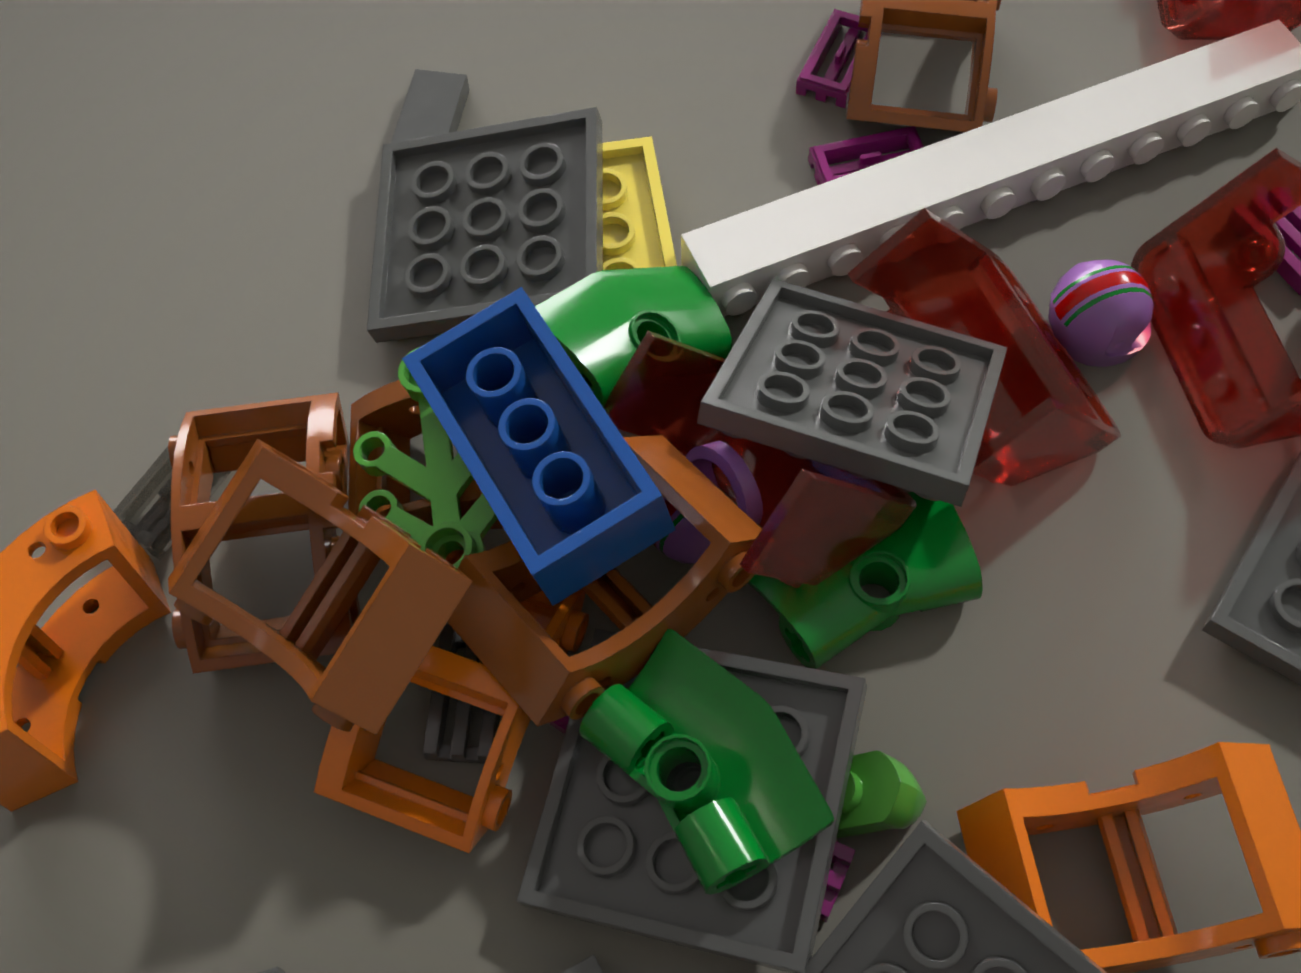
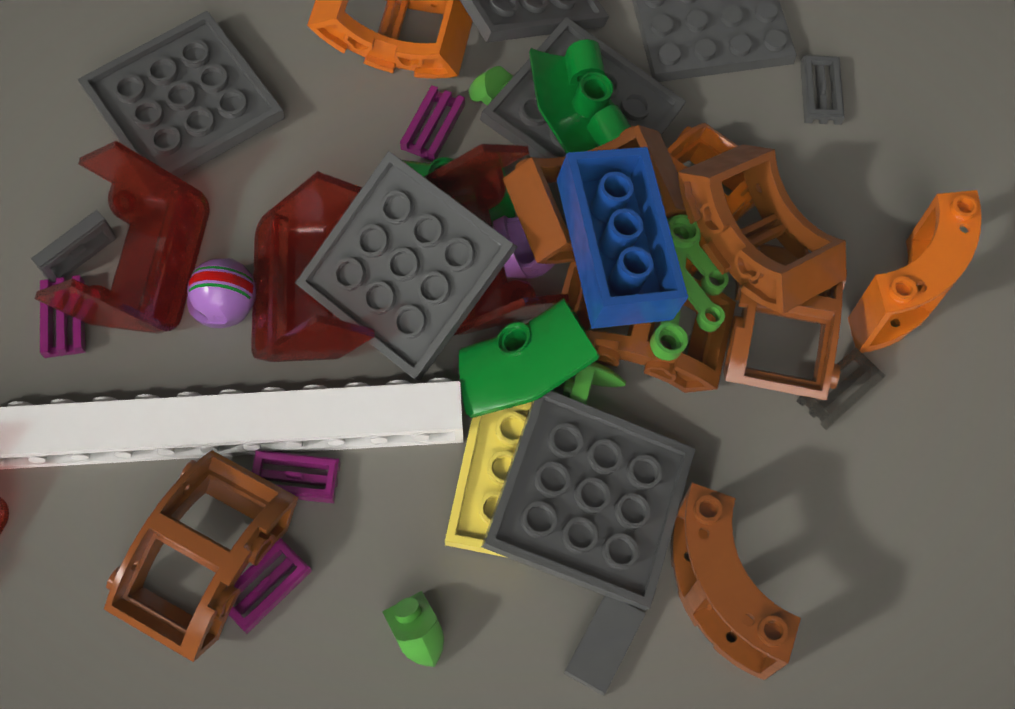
camera: 165 degrees left, 5 degrees up
(307, 142) = (720, 592): none -> dark orange window
(650, 57) = (416, 629): none -> bright green plate
(953, 655) = (444, 99): none -> magenta tile

